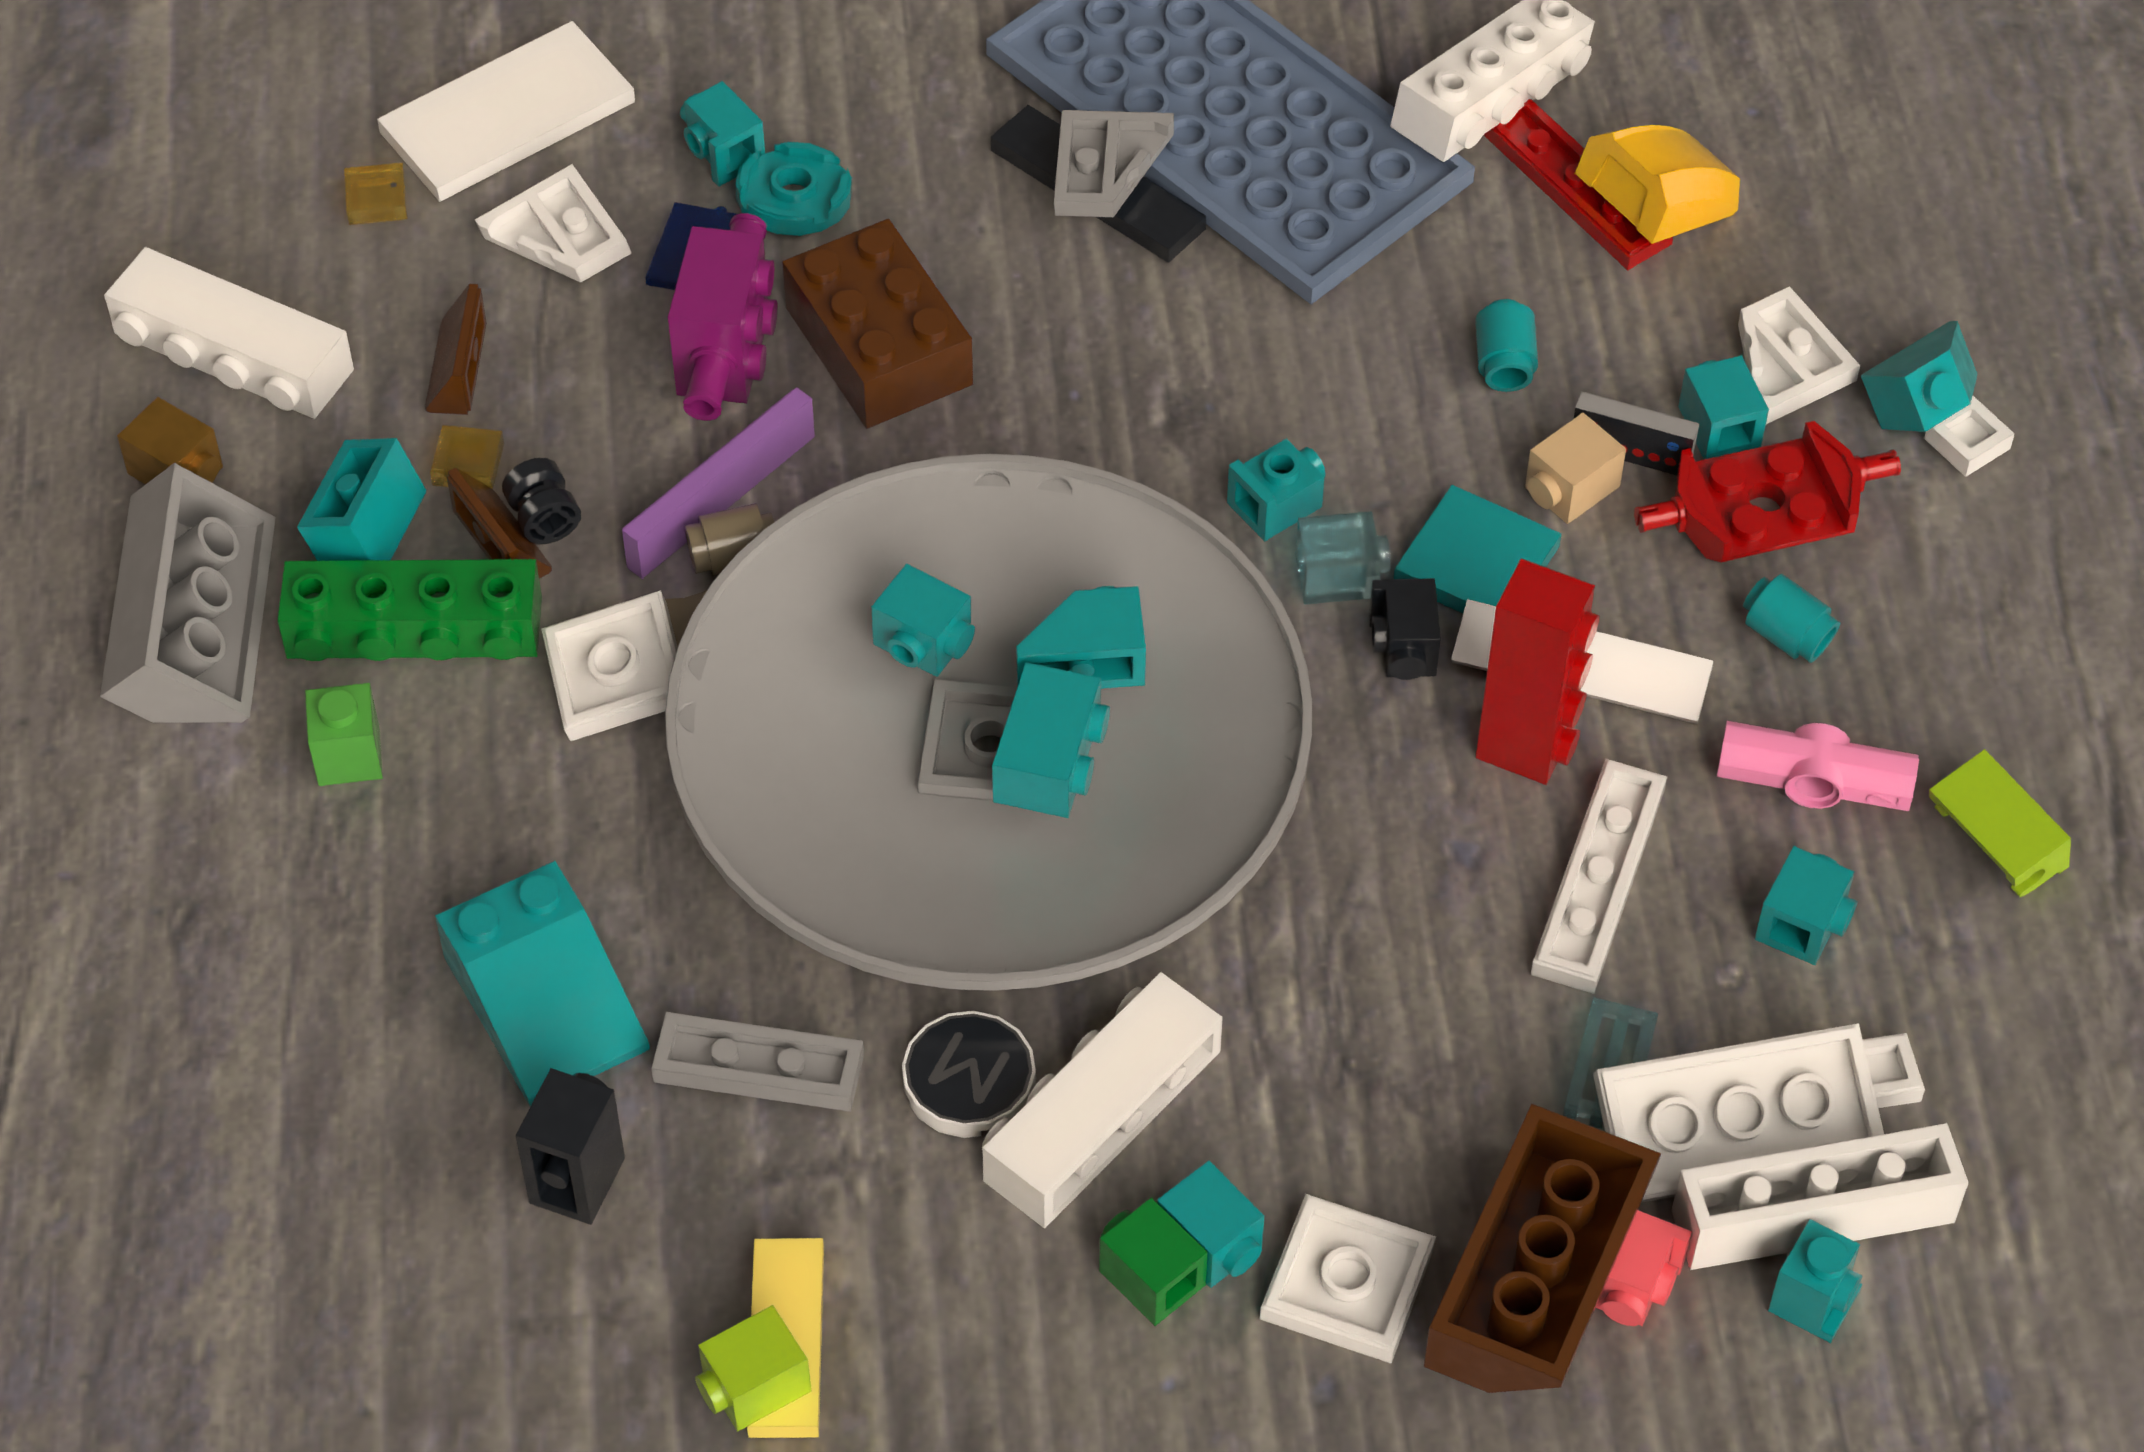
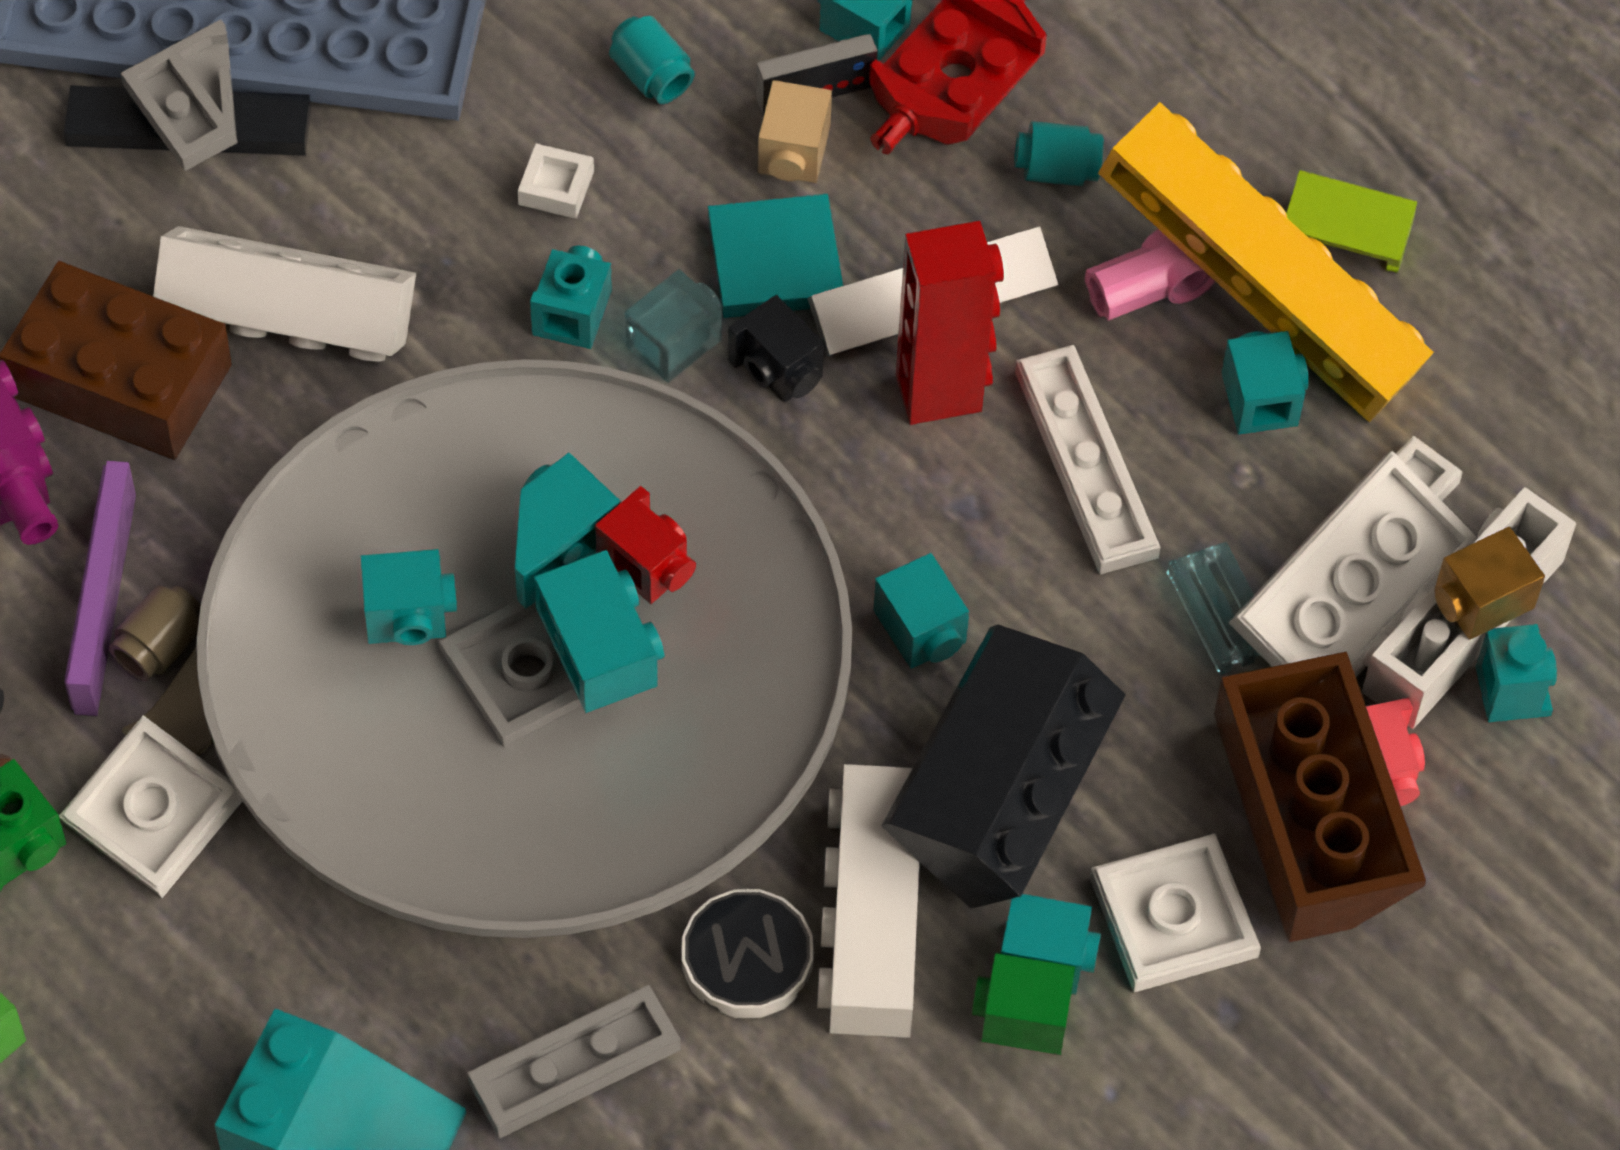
camera: 40 degrees left, 5 degrees up
(1048, 348) = (286, 292): none -> white brick
(1143, 699) = (646, 546): none -> red brick
(1288, 1053) = (1003, 764): none -> black slope
(1342, 901) = (921, 611): none -> teal brick
(1344, 393) = (555, 181): none -> white plate
(1826, 1172) = (1488, 583): none -> pearl gold brick
(1881, 803) = (1265, 260): none -> yellow brick

